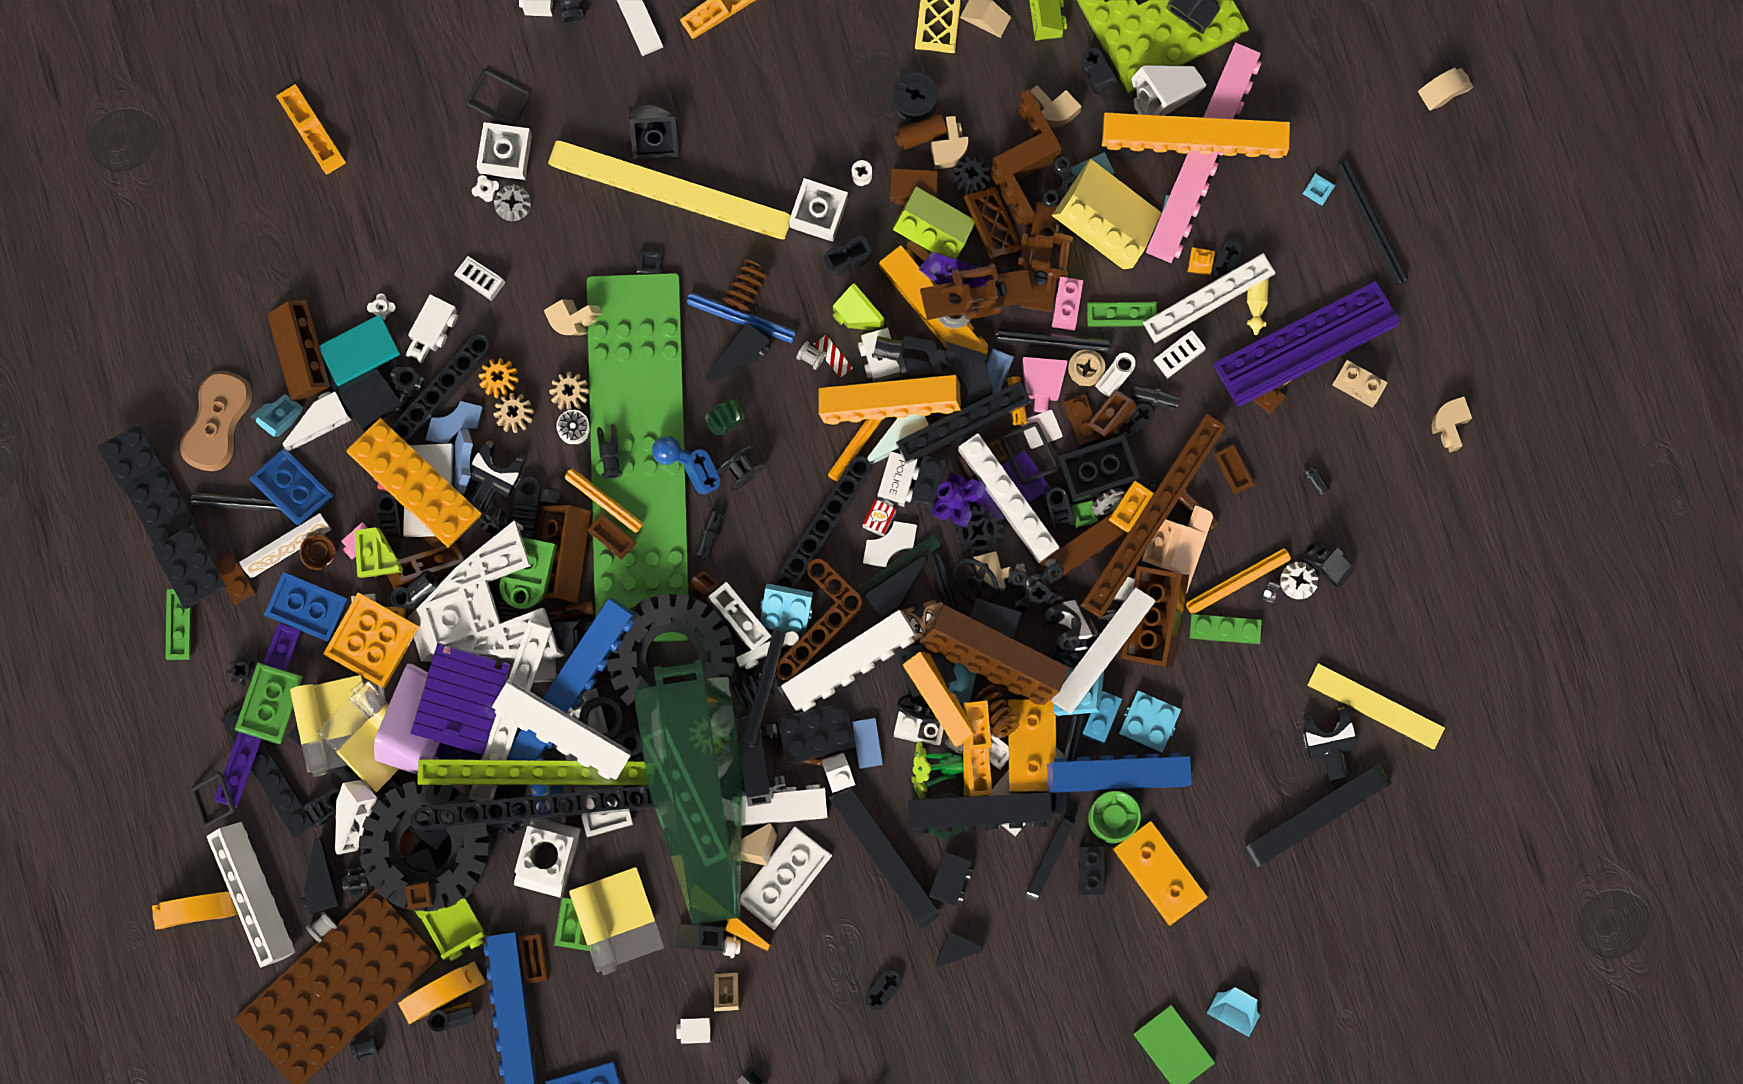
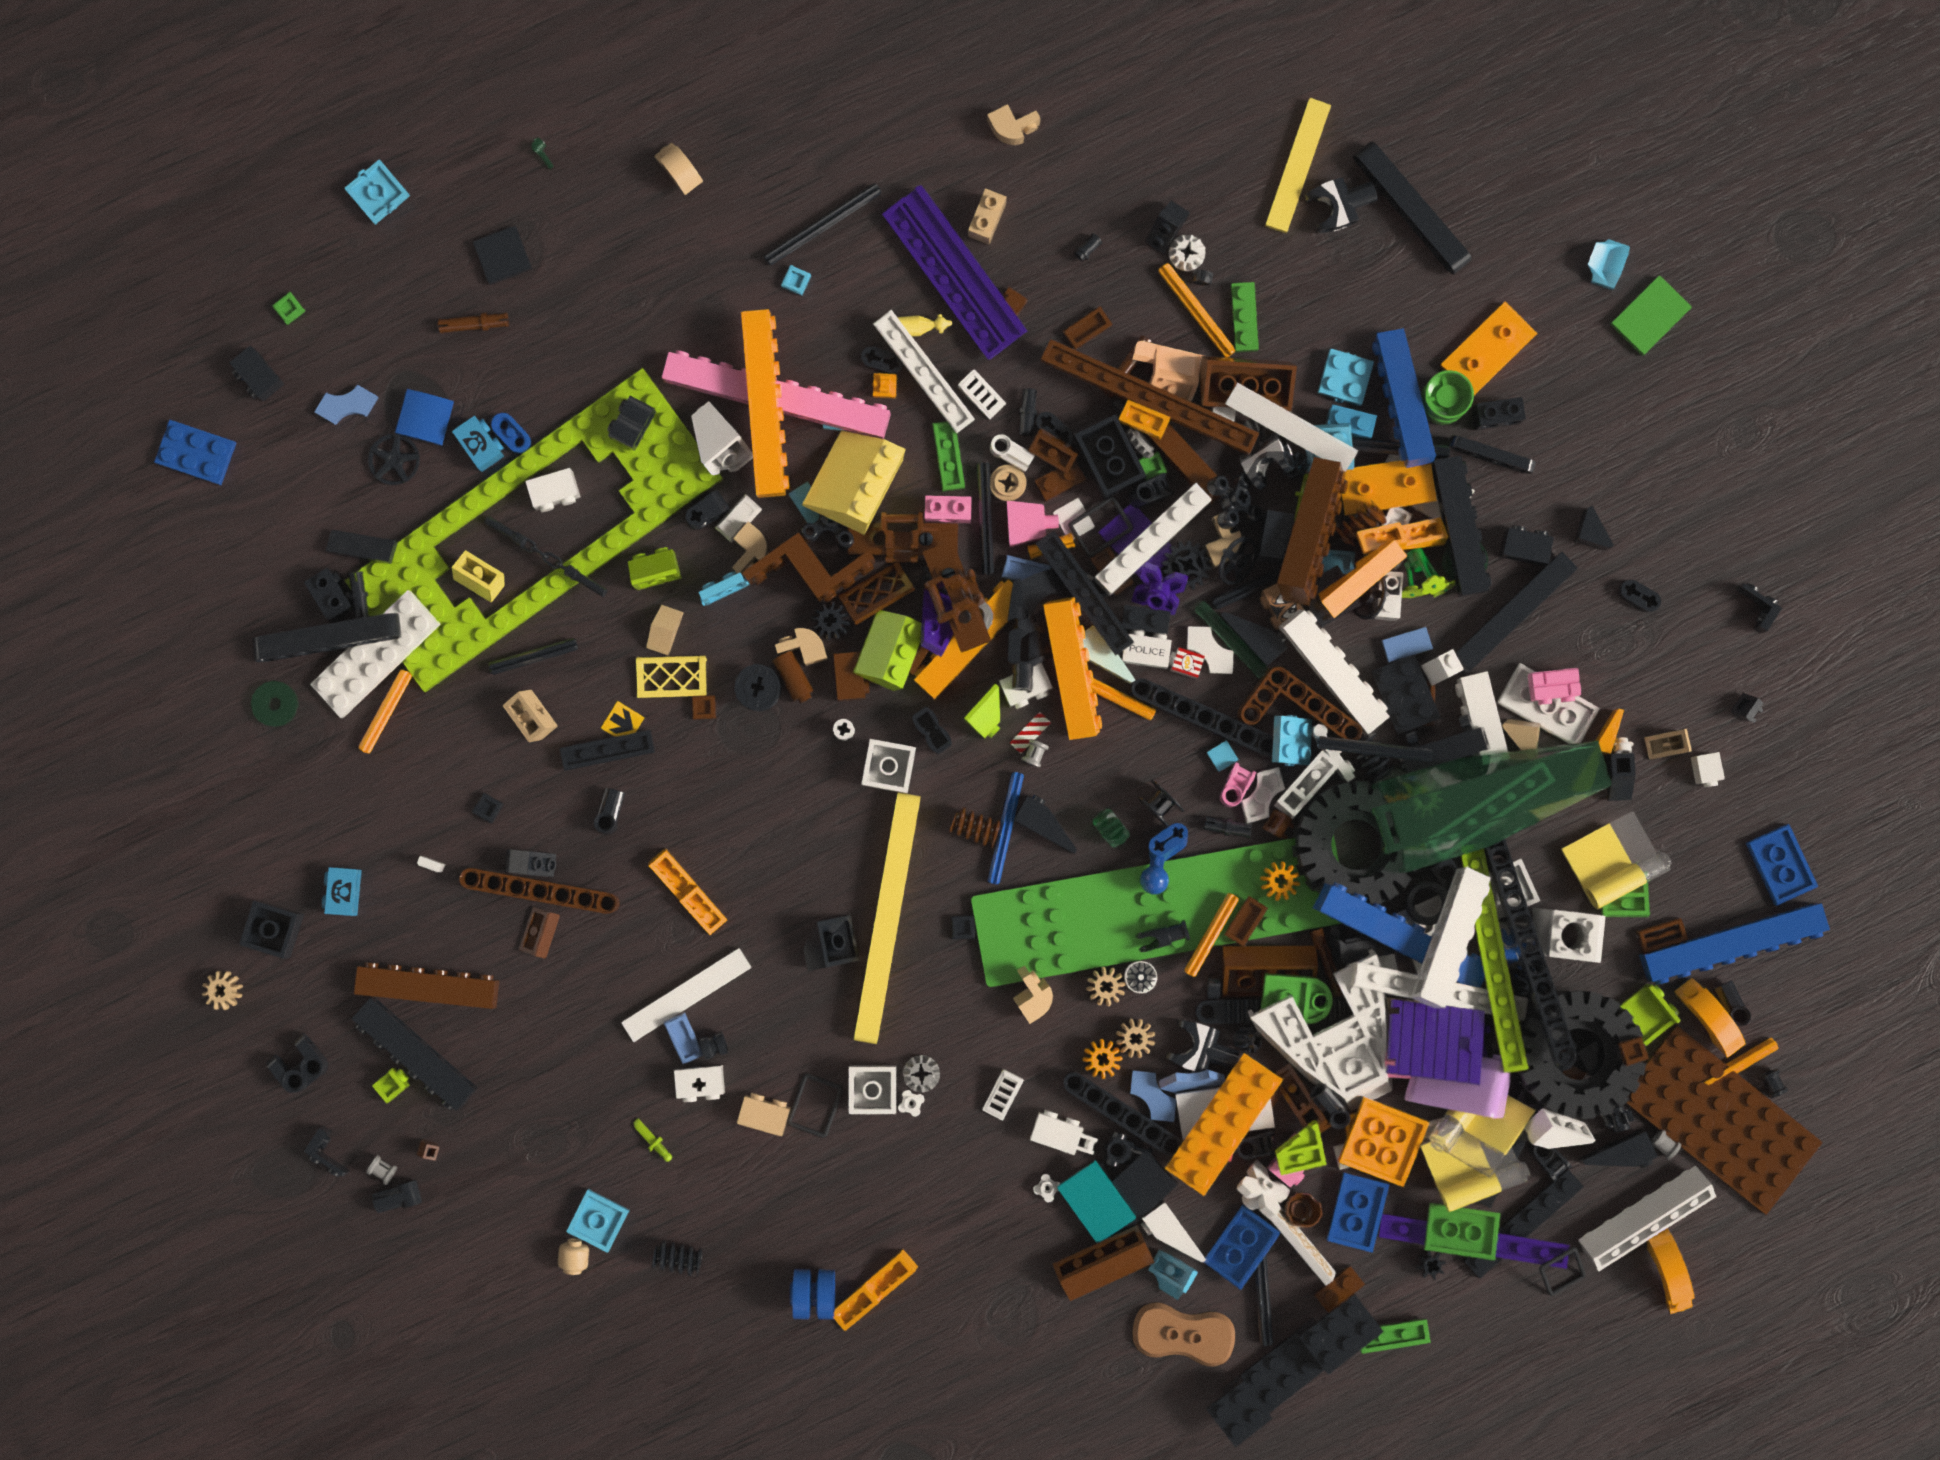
camera: 100 degrees left, 5 degrees up
(316, 67) = (807, 1294): none -> blue wheel
(341, 512) = (1261, 1192): none -> white plant
(394, 1027) = (1749, 1058): none -> light orange axle
(497, 46) = (763, 1114): none -> tan brick
(650, 581) = (1285, 876): none -> light orange gear
(745, 582) = (1267, 786): none -> white tile
(750, 550) = (1237, 784): none -> bright pink piece
(781, 541) = (1222, 756): none -> medium azure tile
(803, 883) = (1554, 685): none -> bright pink brick
(903, 44) = (703, 707): none -> reddish brown tile
(1014, 62) = (731, 583): none -> medium azure plate
(1091, 105) = (737, 517): none -> white tile

